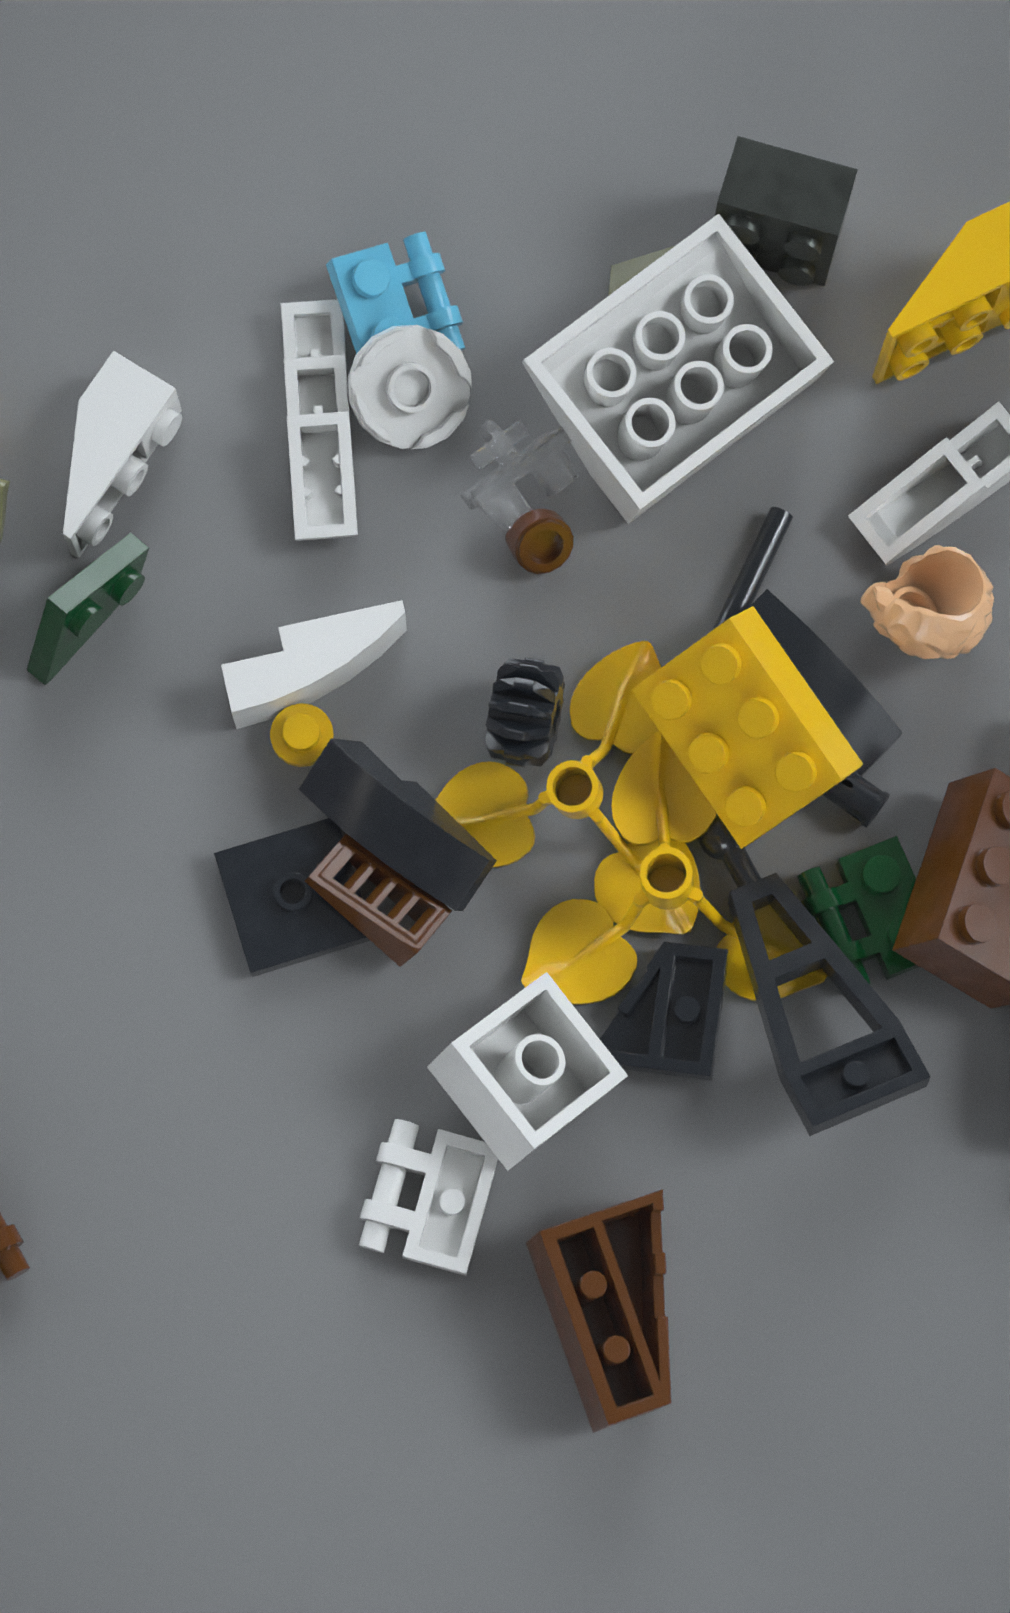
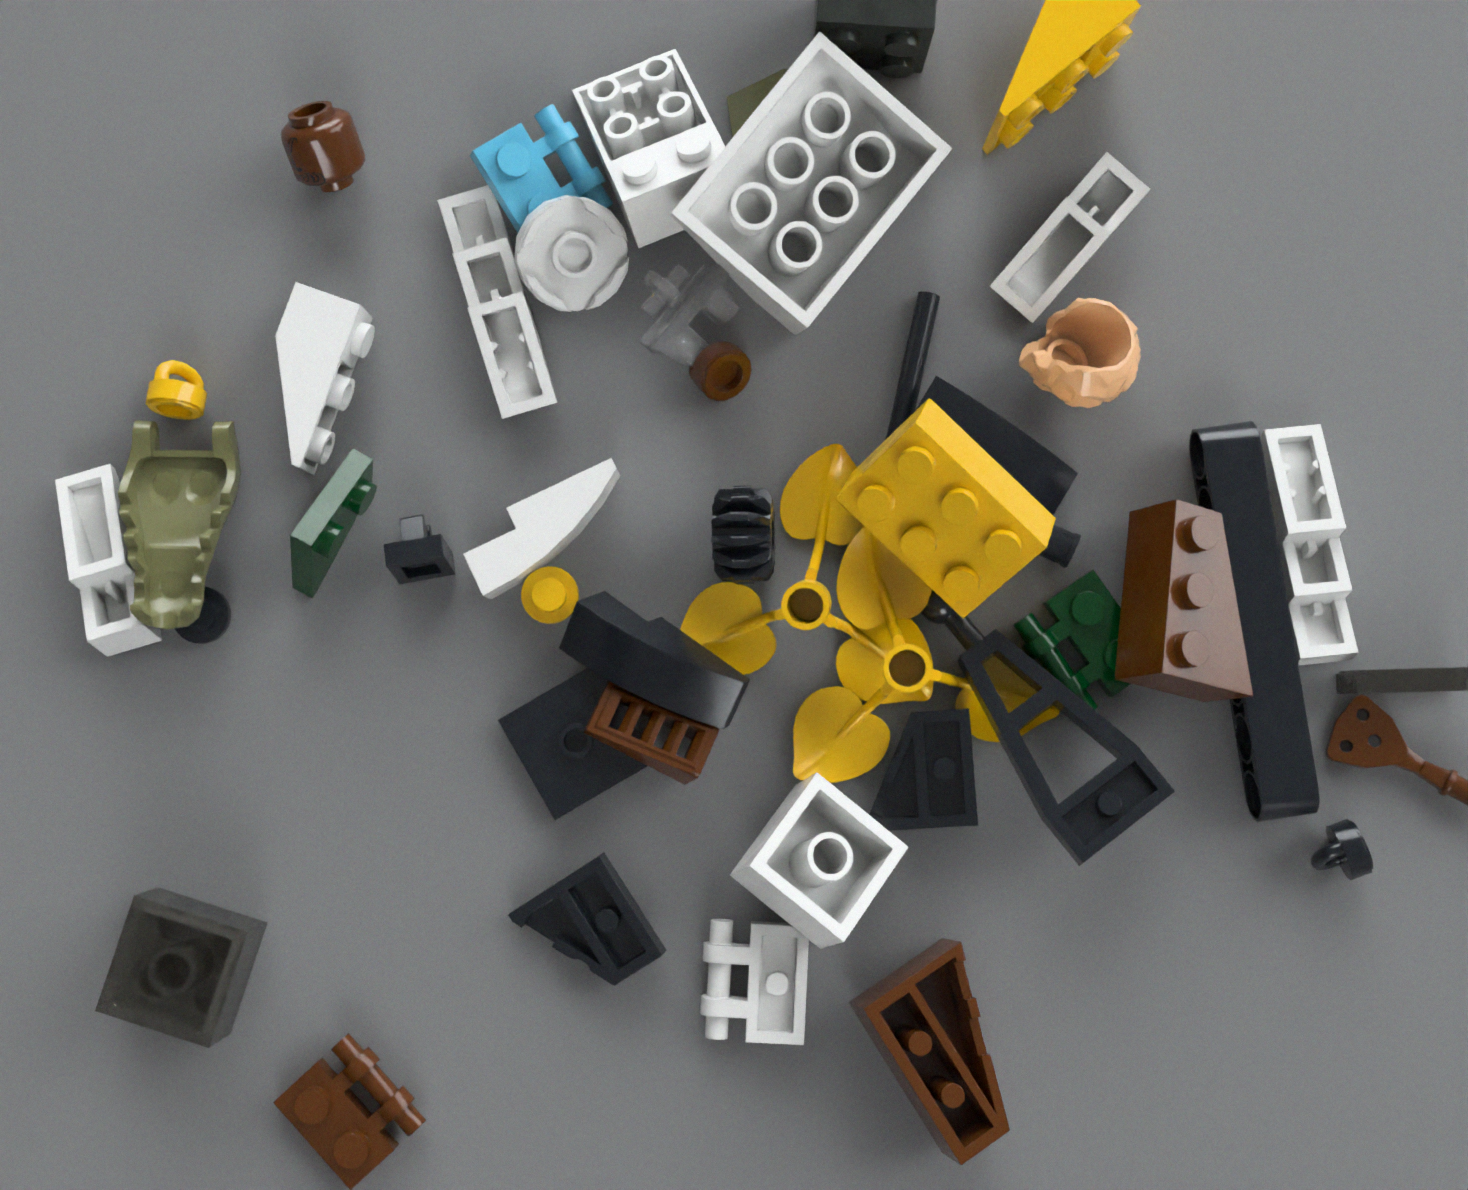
camera: 10 degrees left, 10 degrees up
(172, 659) = (418, 553): none -> black tile
(175, 223) = (322, 146): none -> reddish brown head
(266, 1090) = (594, 921): none -> black wing
(517, 290) = (650, 140): none -> white slope

